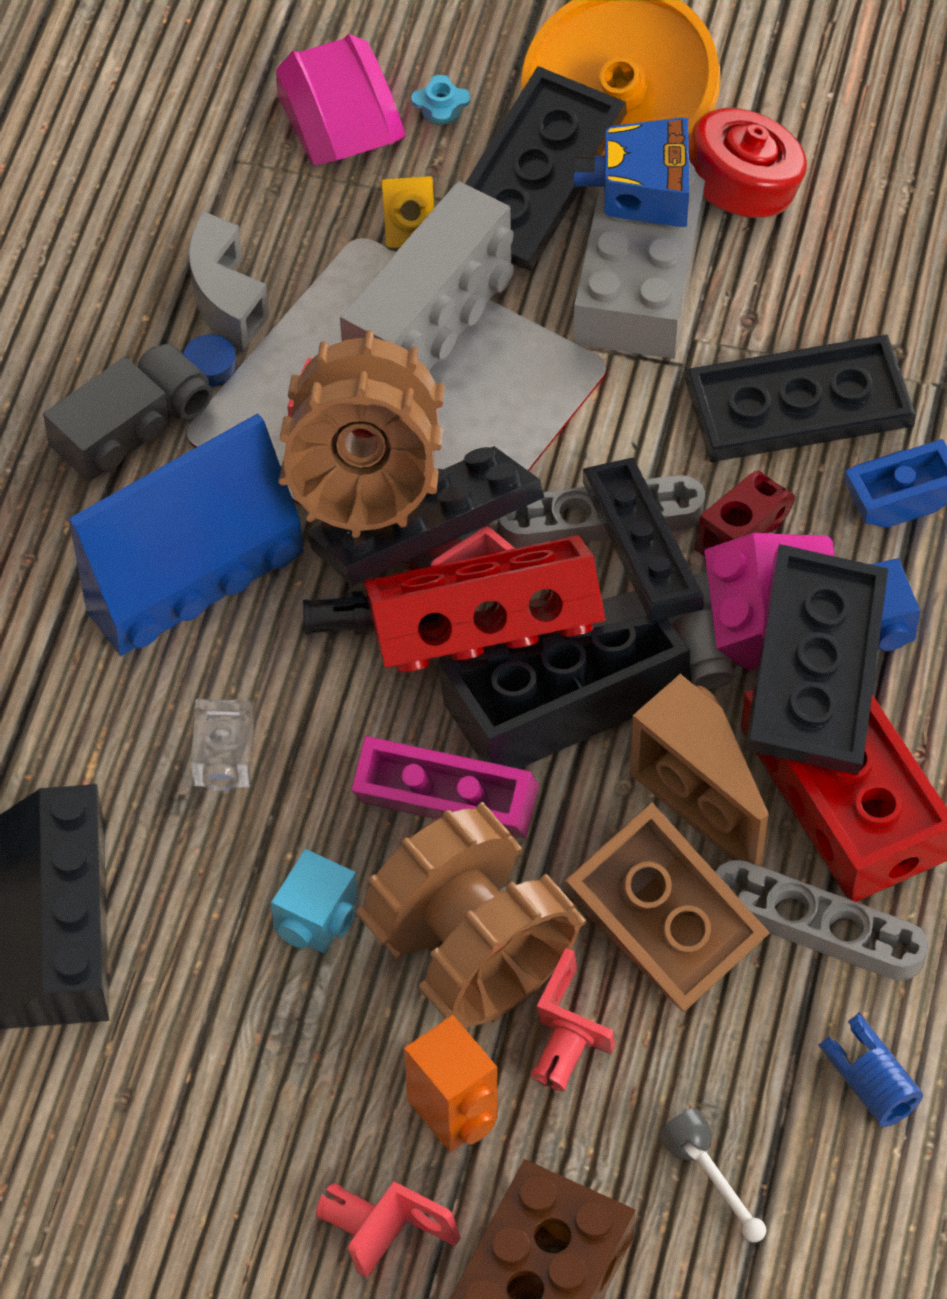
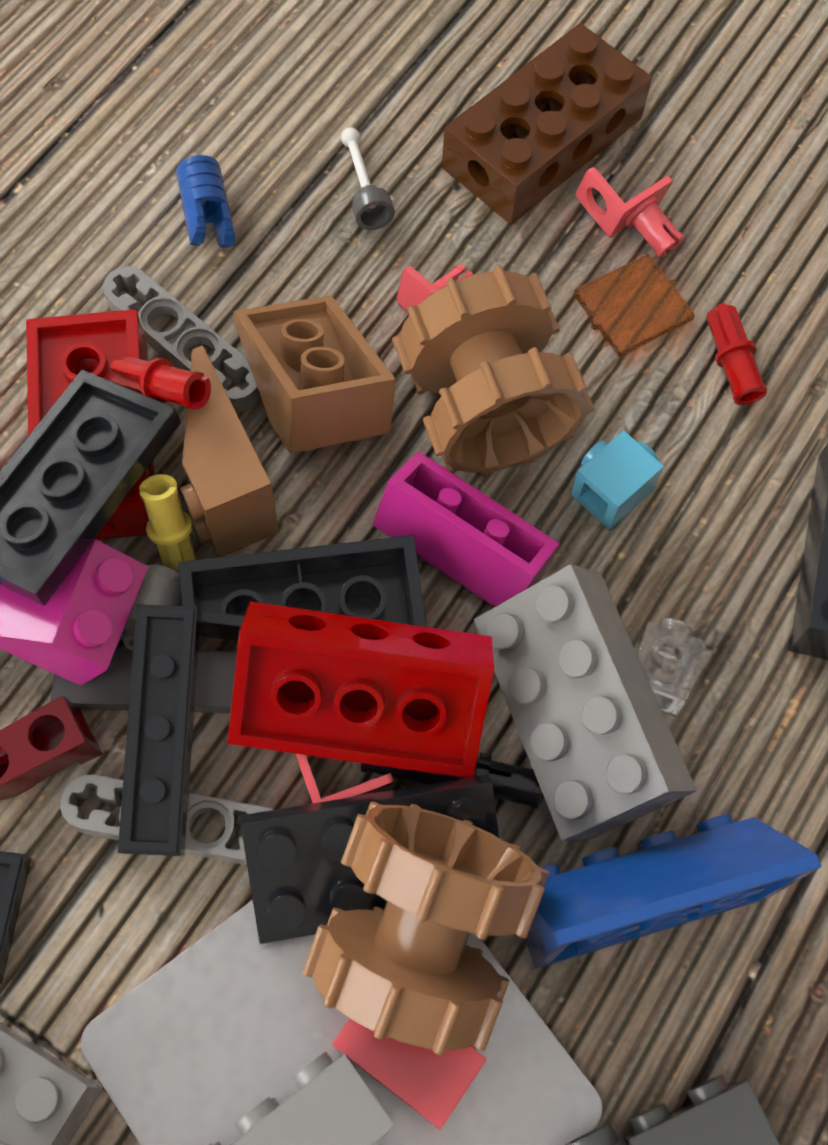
camera: 165 degrees left, 10 degrees up
(223, 1089) = (736, 354): none -> red axle
(287, 665) = (583, 705): none -> light grey brick
(352, 1127) = (633, 305): none -> clear orange piece
(452, 1084) = (561, 255): orange brick -> none
(729, 689) = (167, 522): none -> light yellow axle
(780, 769) = (162, 381): none -> red axle

